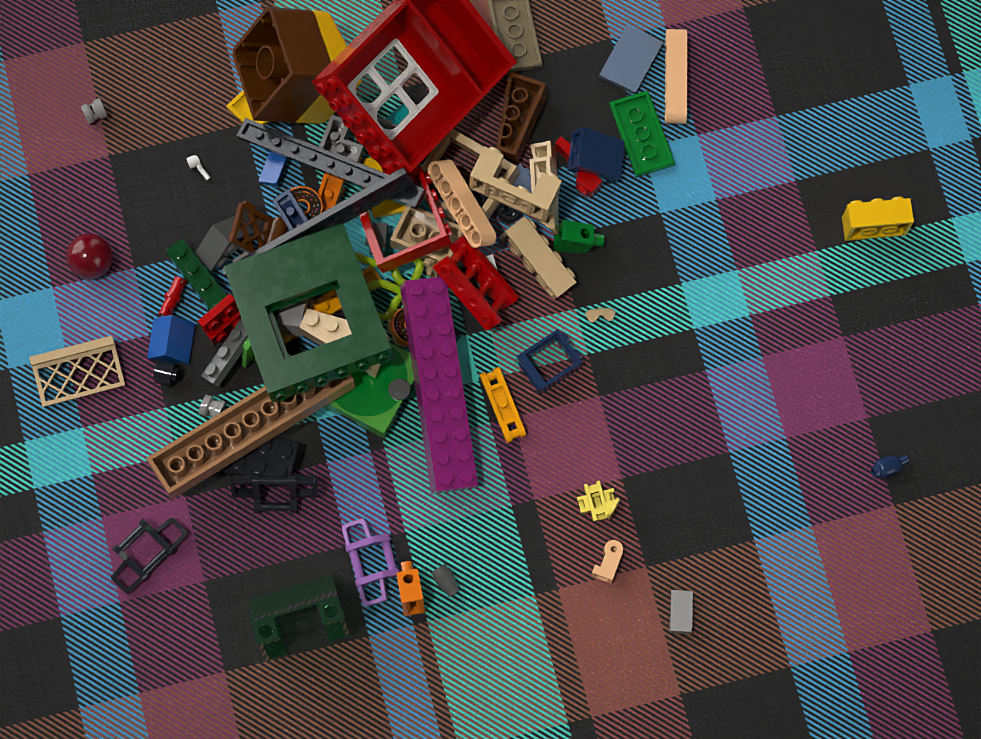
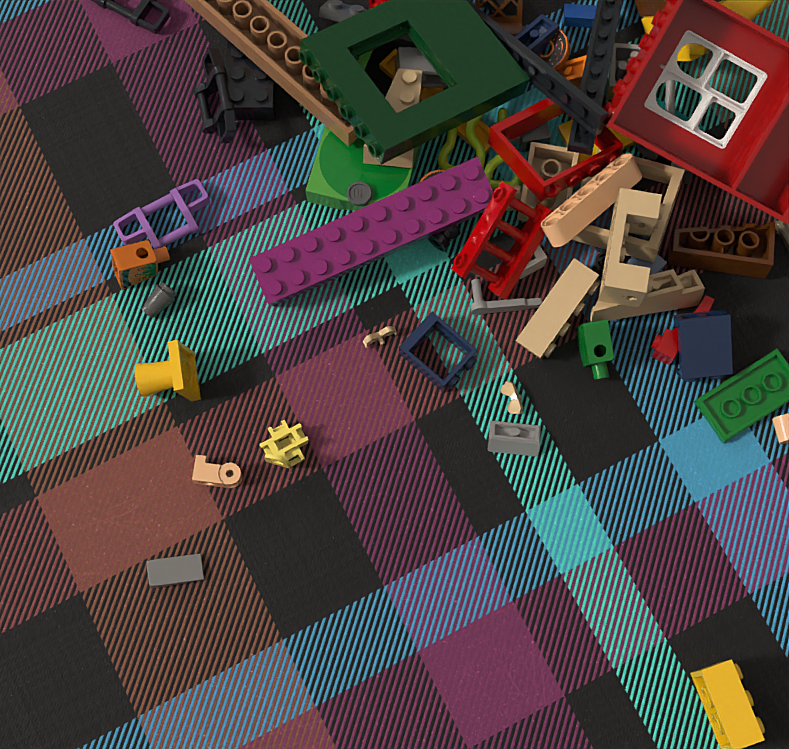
camera: 80 degrees right, 0 degrees up
(211, 407) = (299, 15): light grey wheel -> none
(267, 607) = (92, 159): clear green windscreen -> none
(502, 404) = (375, 314): light orange plate -> none
(517, 583) = (176, 373): none -> yellow plant
(518, 317) = (482, 307): none -> light grey piece
(521, 408) = (389, 330): none -> tan piece
(633, 321) = (514, 438): none -> light grey slope

